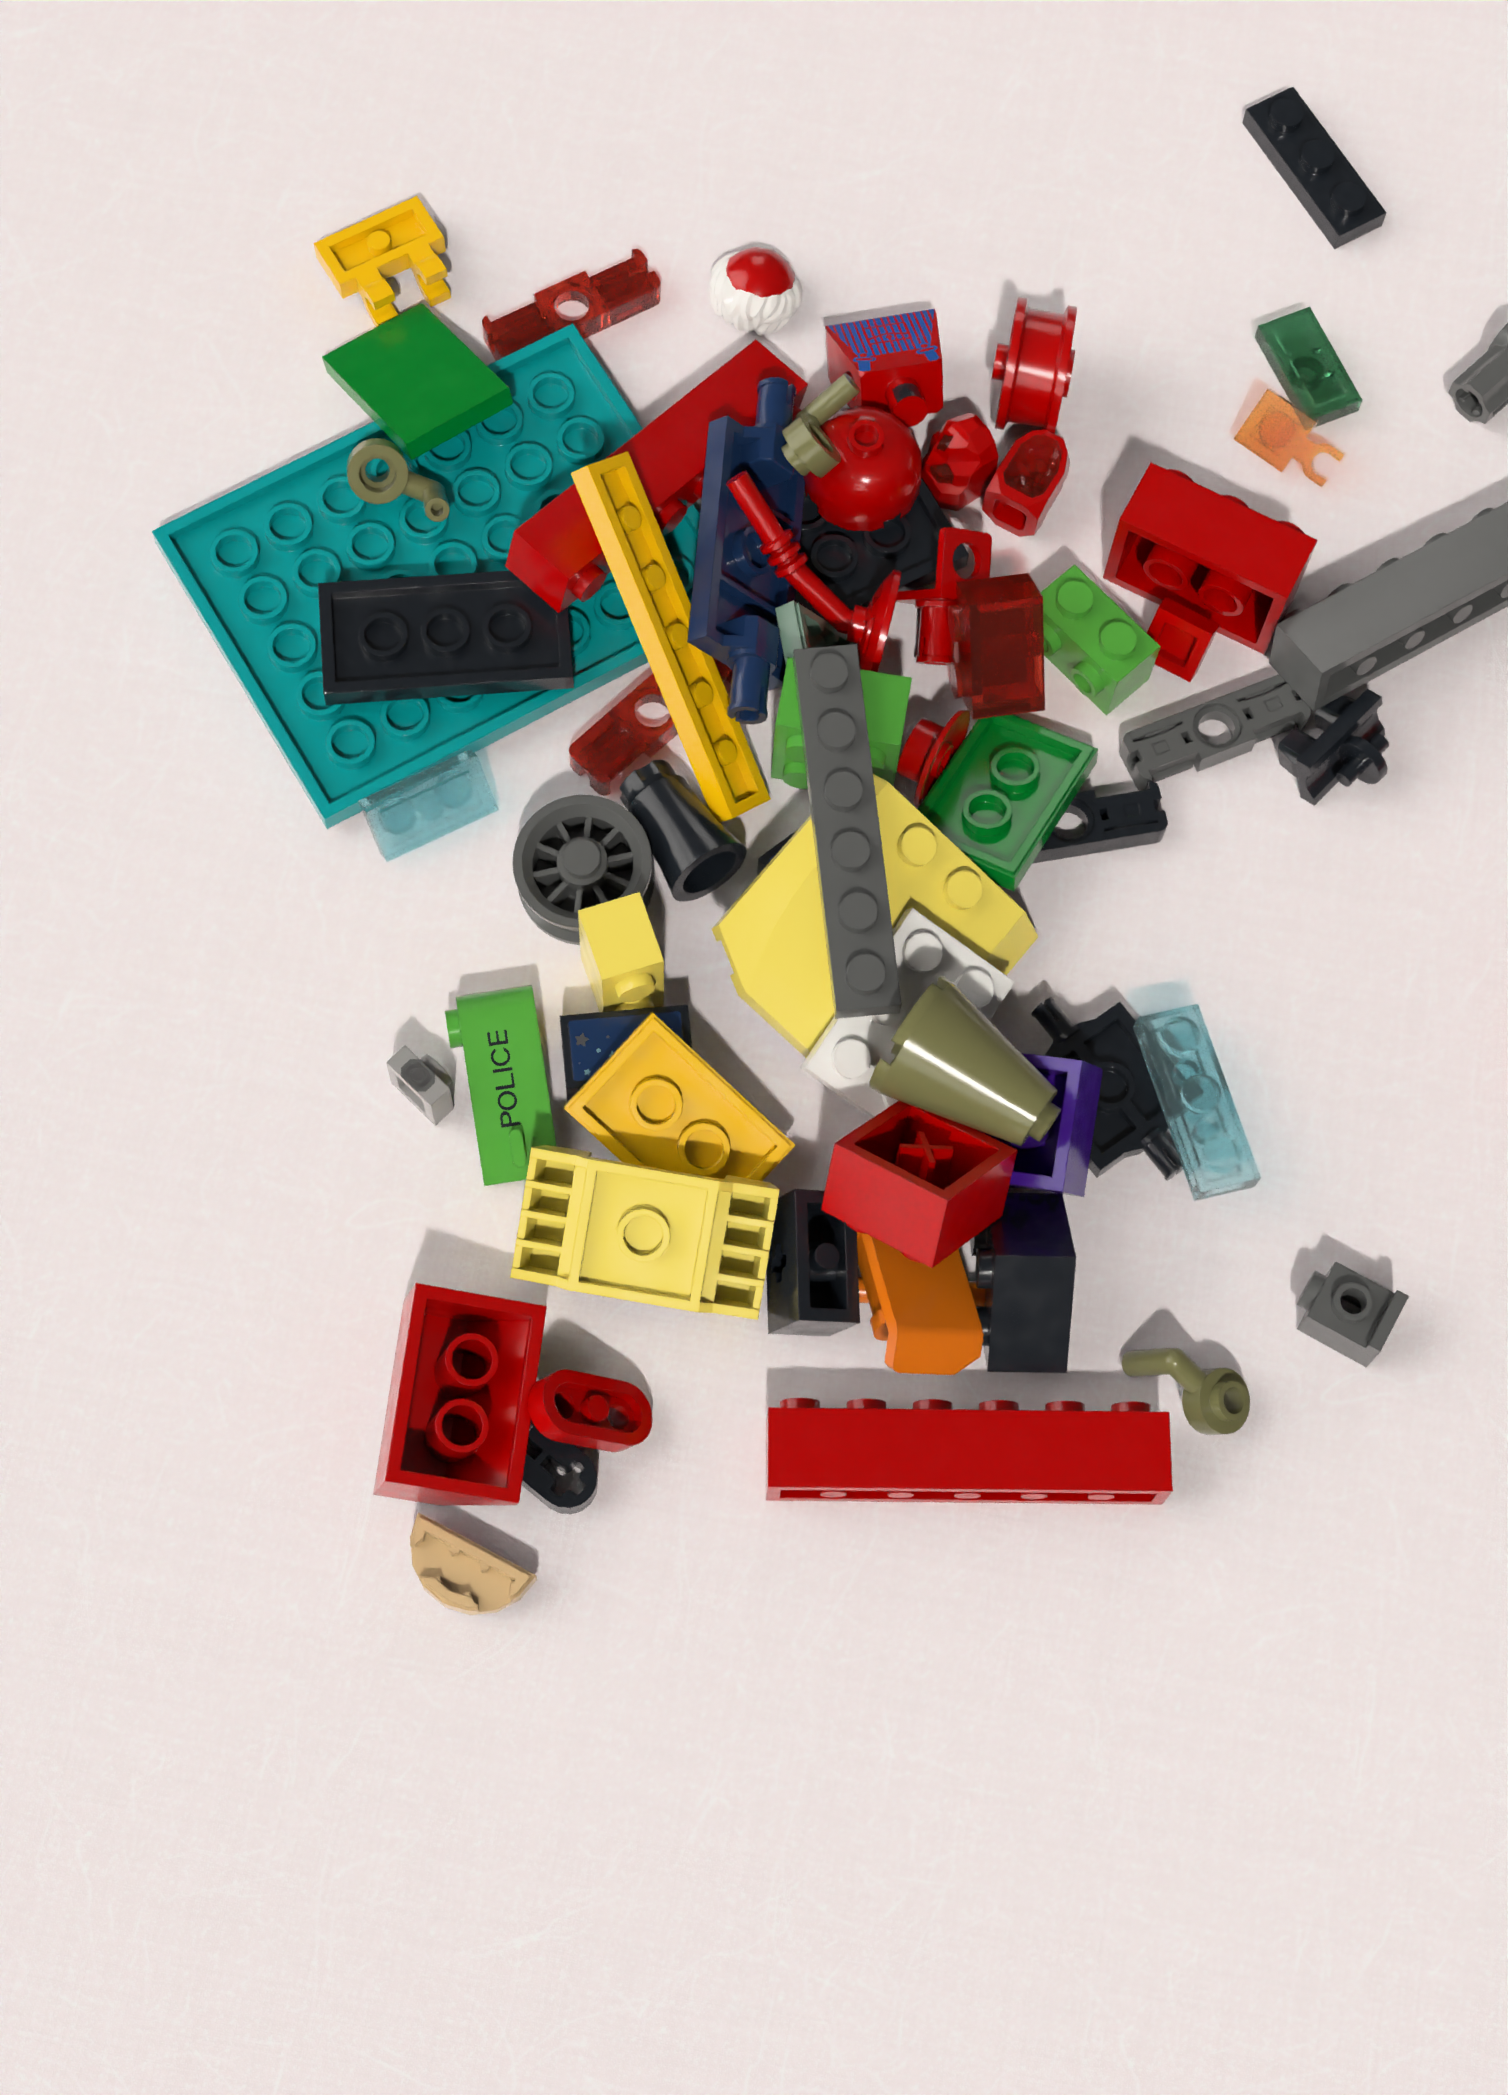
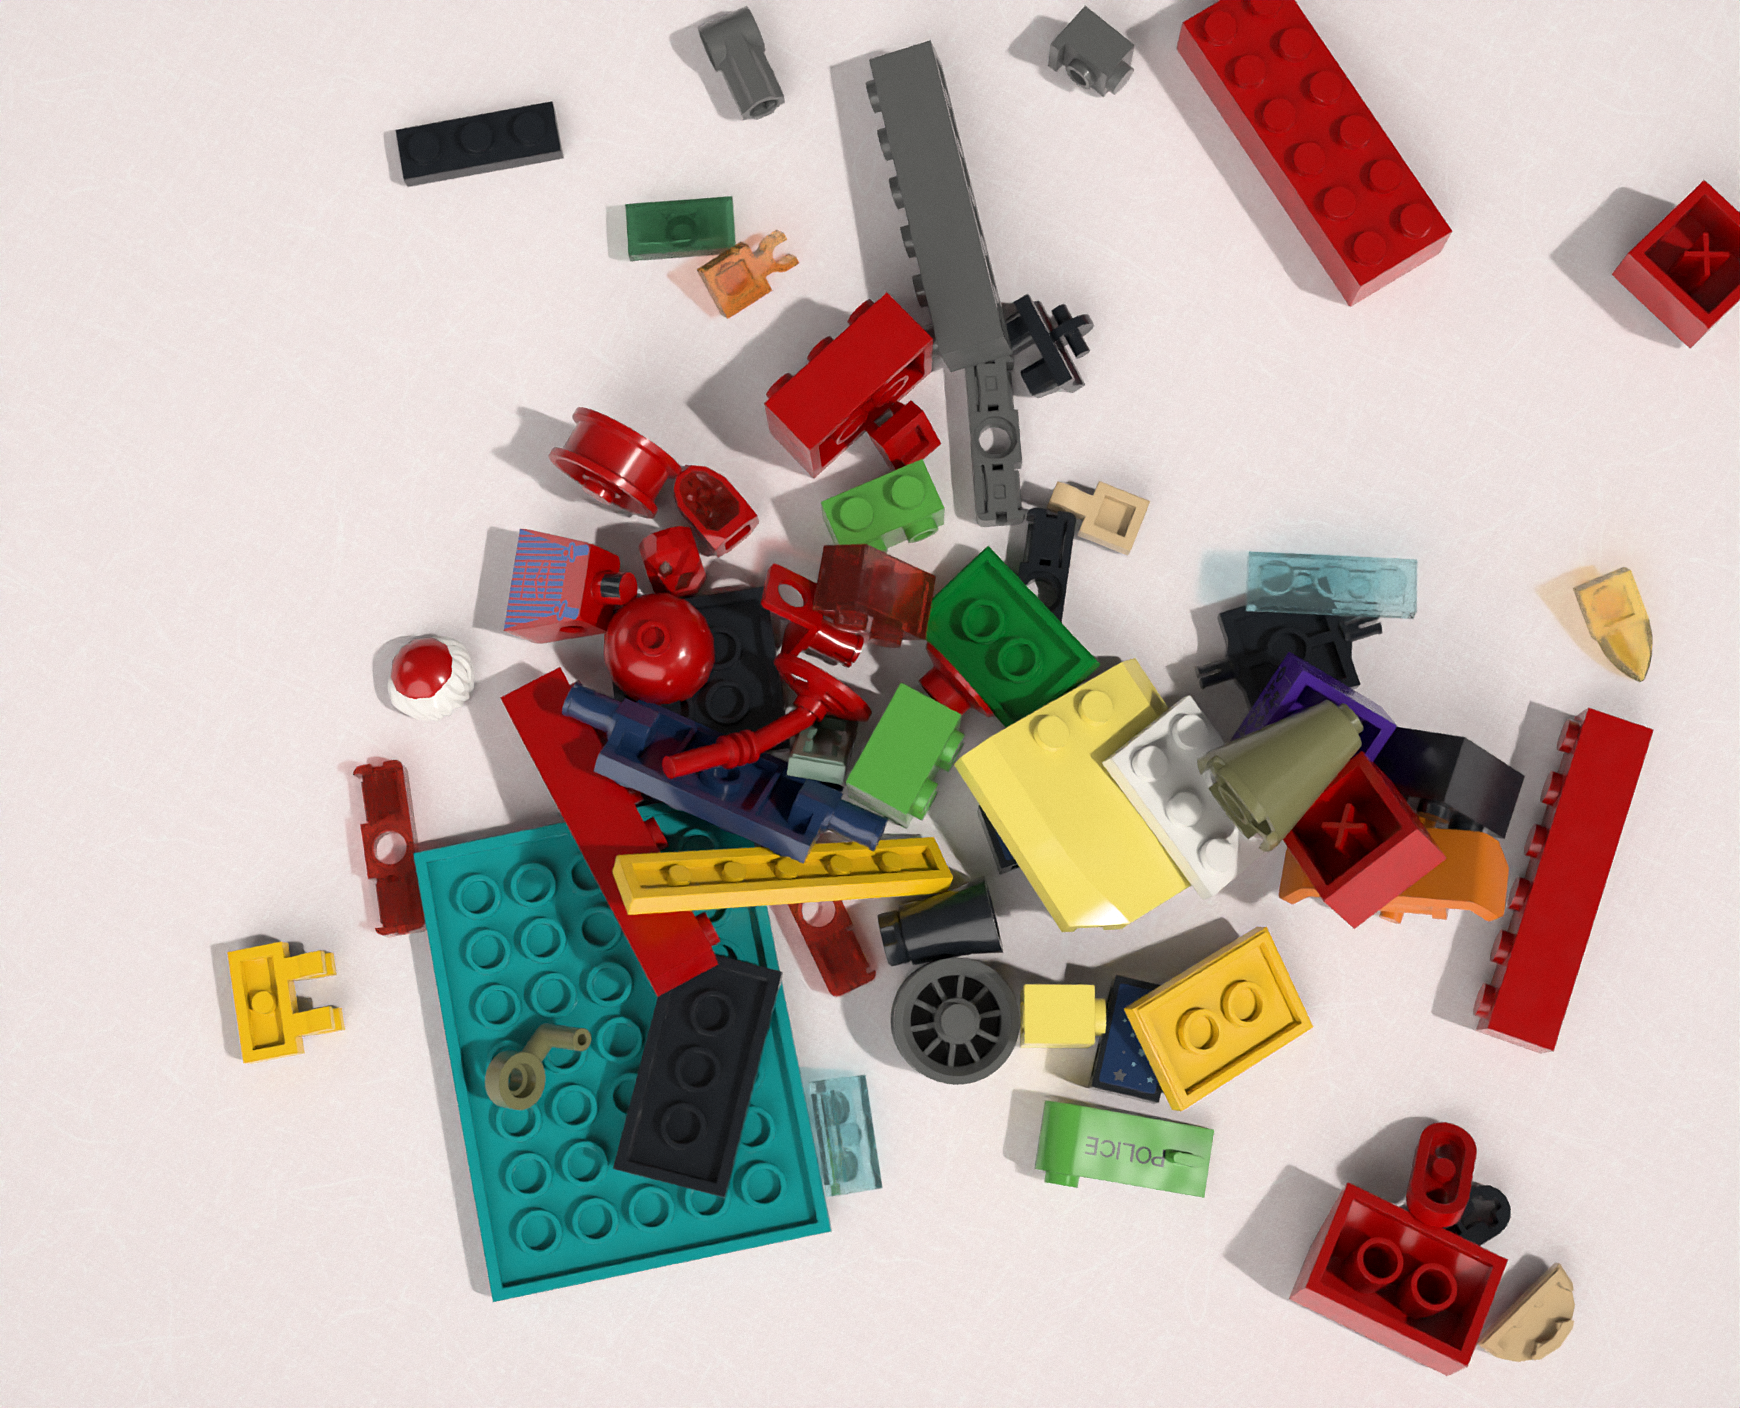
camera: 60 degrees left, 10 degrees up
(417, 381) = (426, 1013): green tile -> none
(422, 1083) = (1103, 1221): light grey plate -> none
(645, 1233) = (1310, 1079): light yellow plate -> none
(807, 445) = (644, 691): olive plate -> none
(811, 1269) = (1381, 955): black brick -> none
(846, 832) = (1027, 789): dark grey plate -> none
(1178, 860) = (1108, 516): none -> tan plate
(1212, 1398) = (1573, 666): olive plate -> none
(1282, 1432) = (1618, 621): none -> clear yellow plate
(1353, 1335) = (1554, 515): dark grey brick -> none

